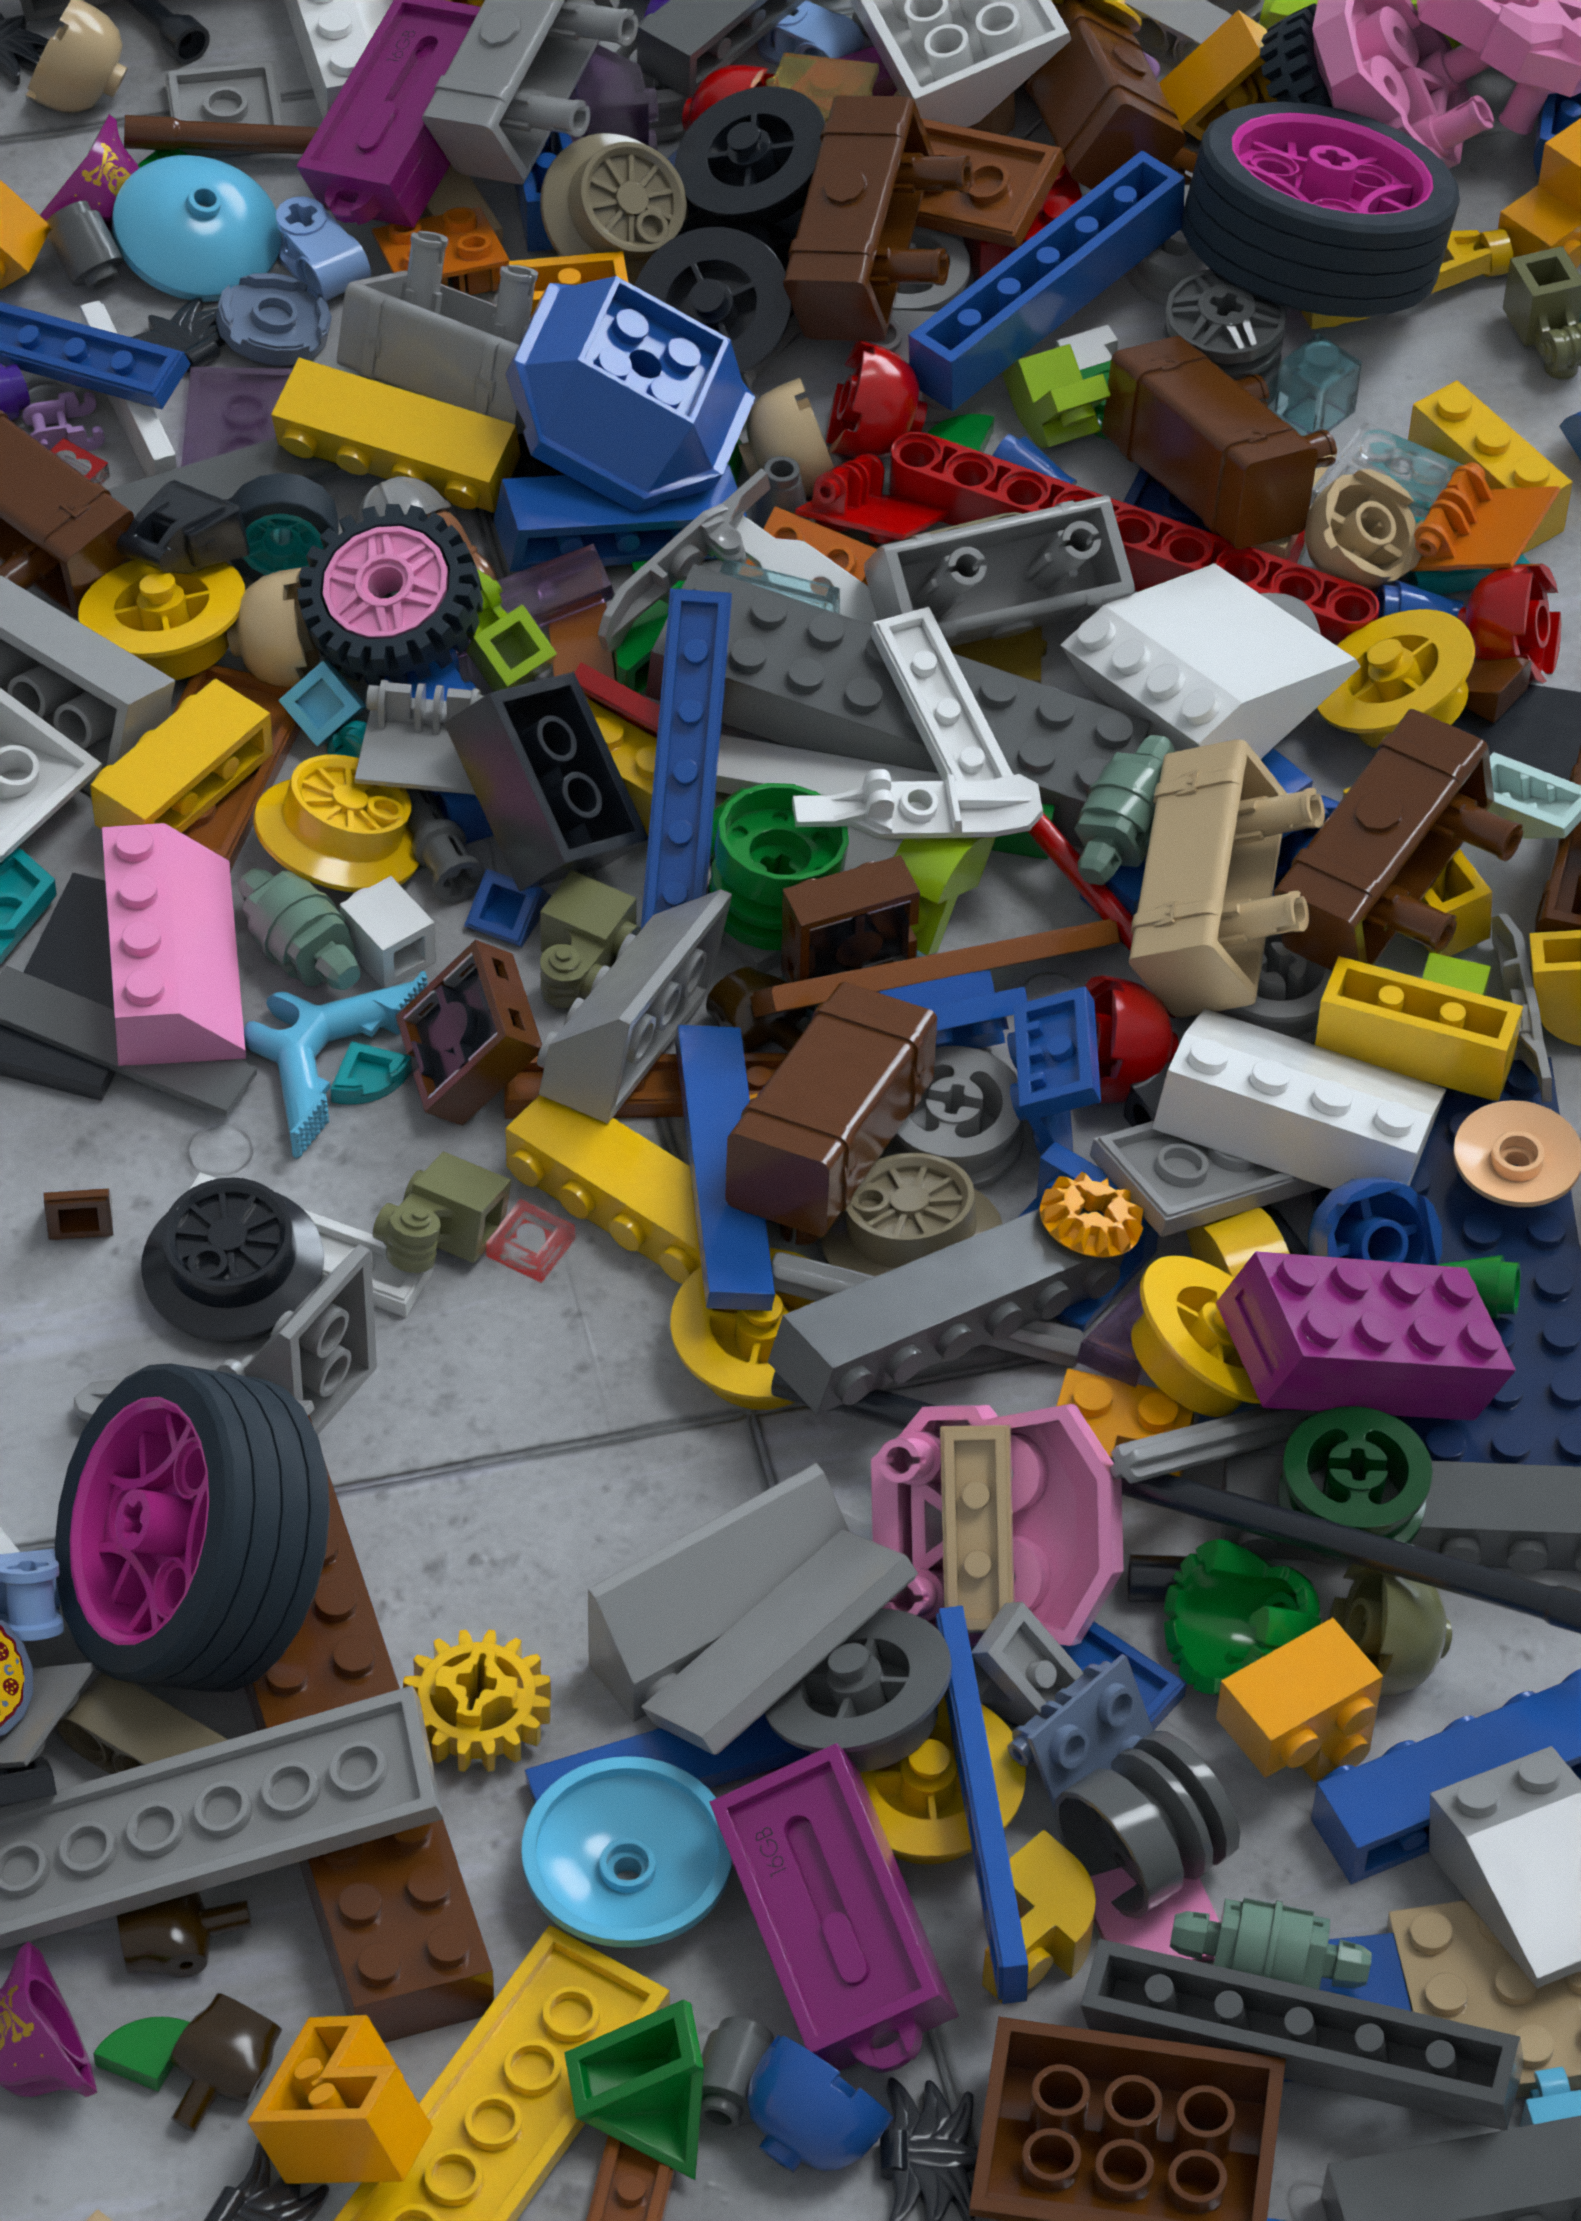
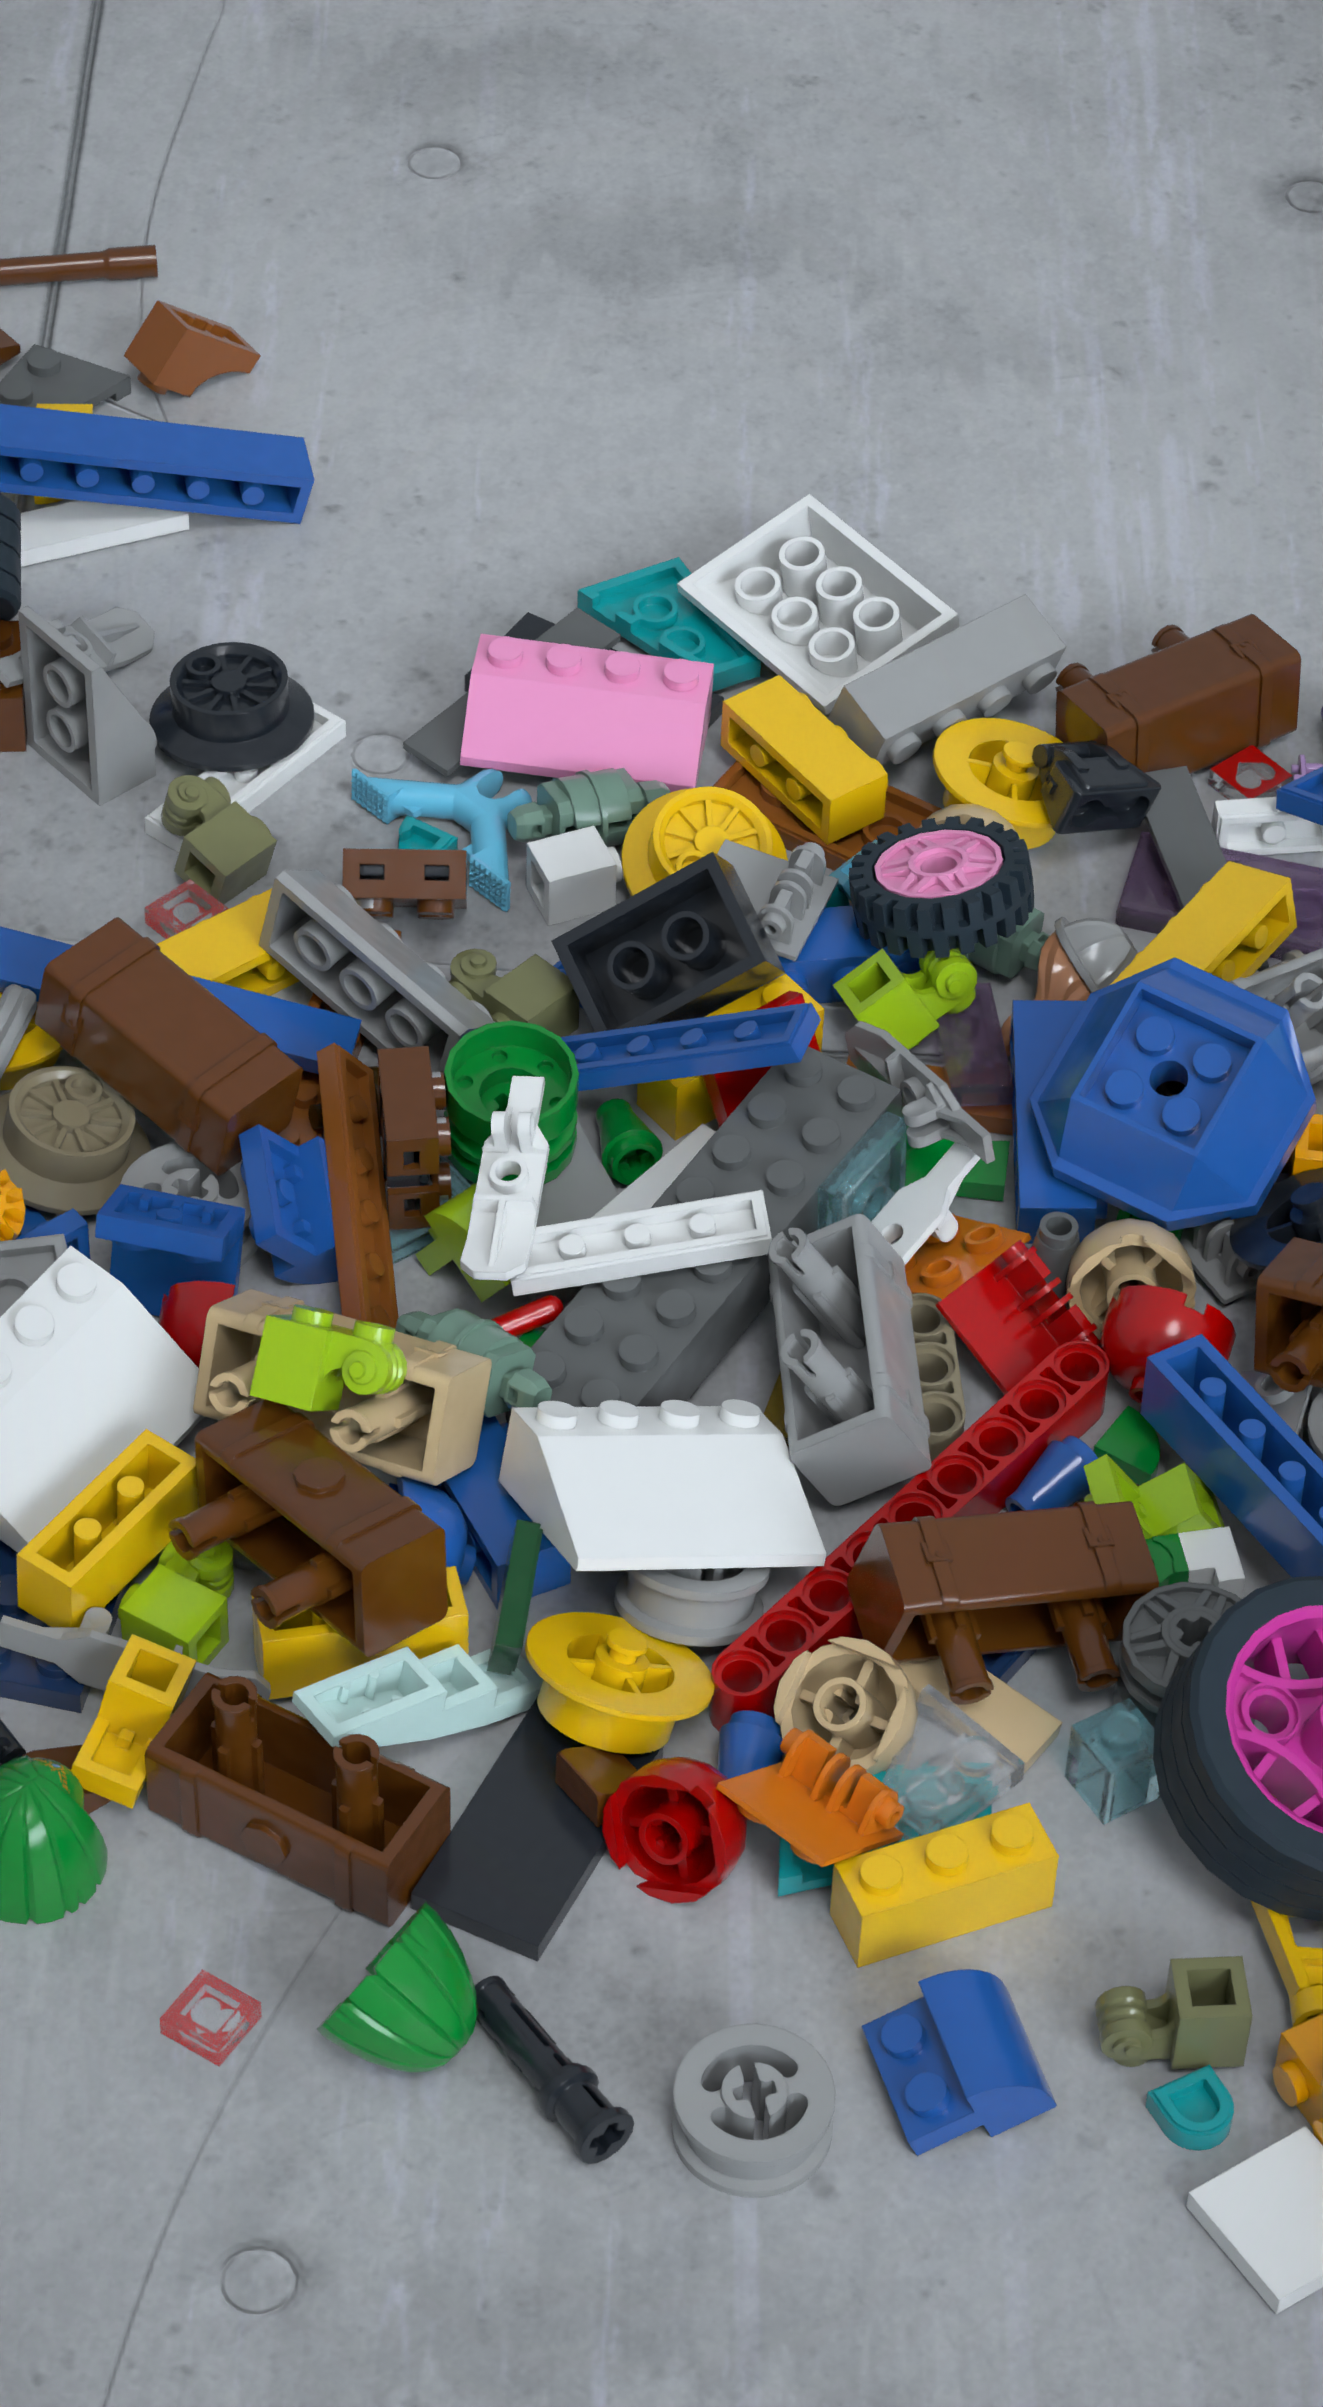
camera: 105 degrees right, 5 degrees down
(78, 1213) = (335, 643): reddish brown slope -> none
(284, 502) = (1099, 869): wheel -> none
(1256, 837) = (309, 1359): none -> lime brick
(1336, 745) = (515, 1597): none -> dark green tile

